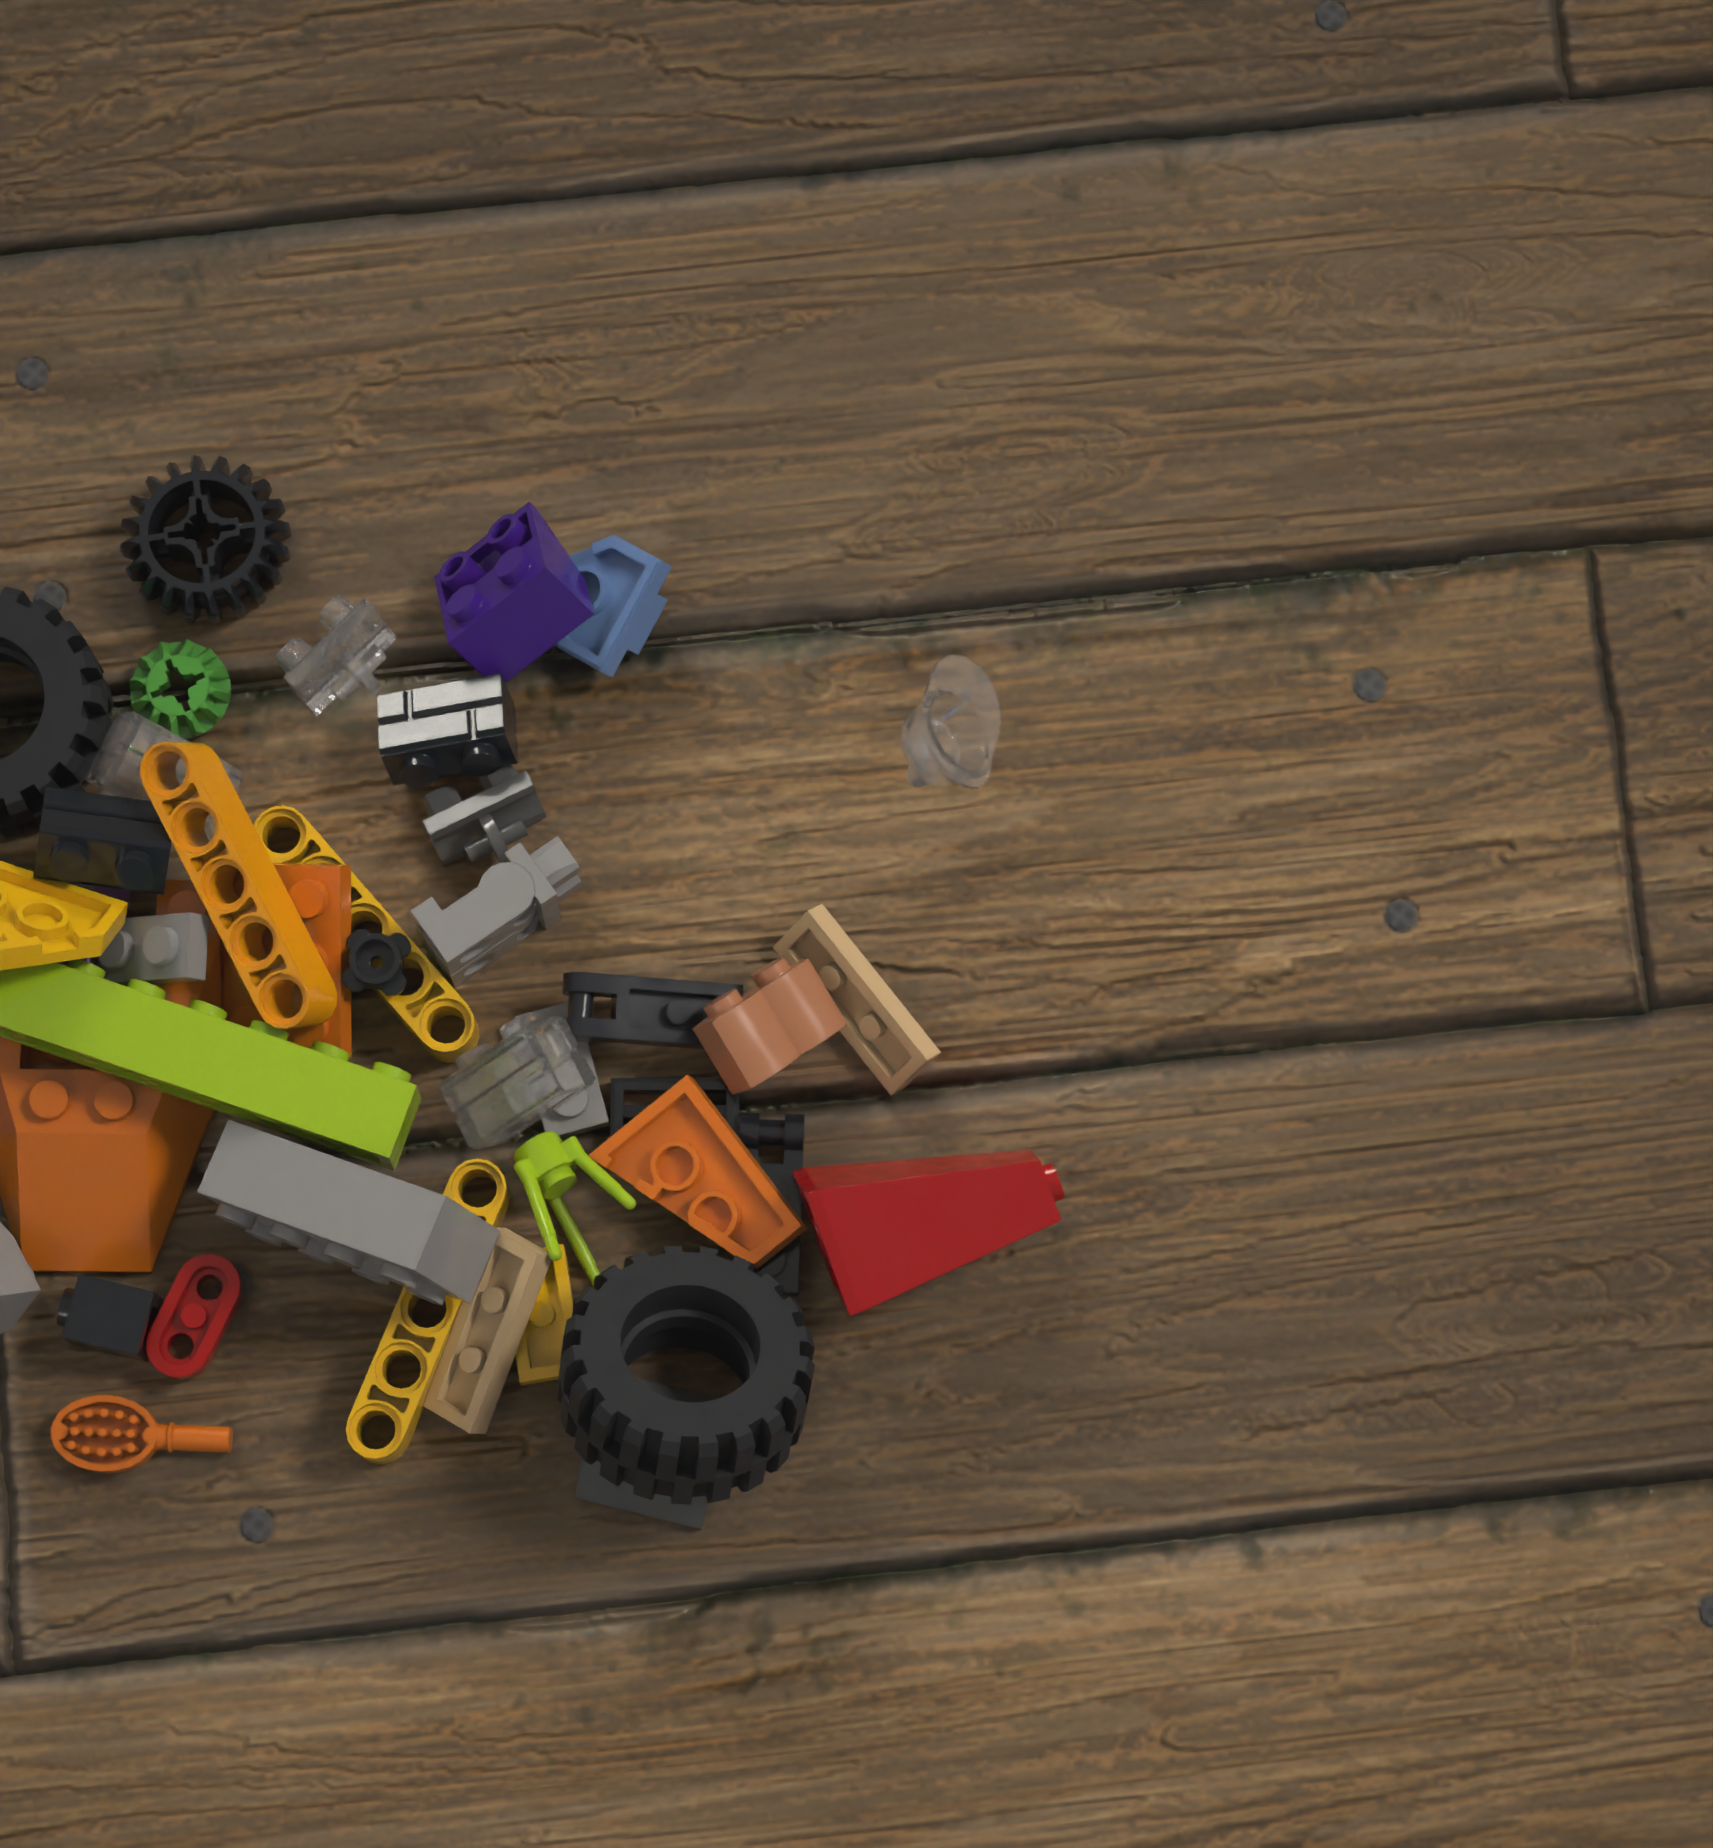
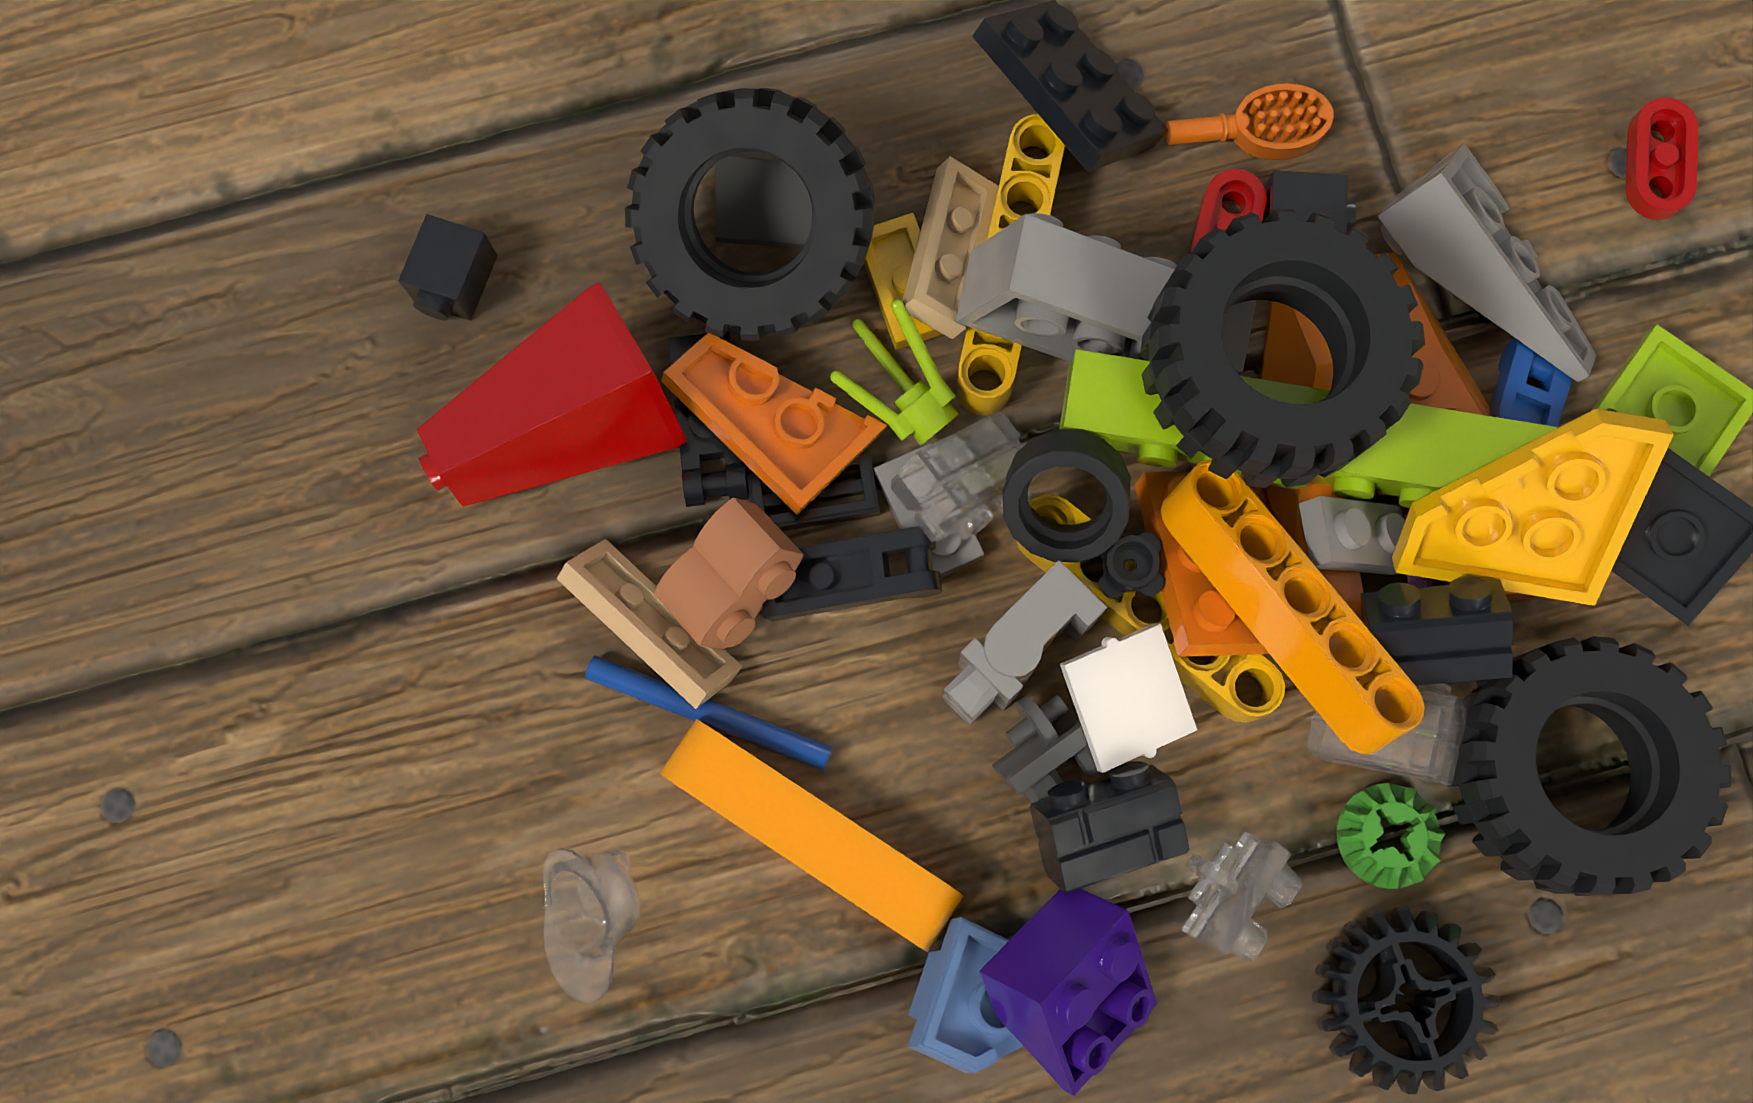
camera: 170 degrees right, 0 degrees up
(146, 1032) = (1332, 284): none -> black tyre
(326, 1496) = (1070, 83): none -> black plate
(404, 841) = (1128, 697): none -> white piece
(419, 1055) = (1067, 541): none -> black tyre
(732, 774) = (812, 835): none -> light orange beam
(800, 901) = (710, 713): none -> blue bar
(1016, 1399) = (447, 269): none -> black brick

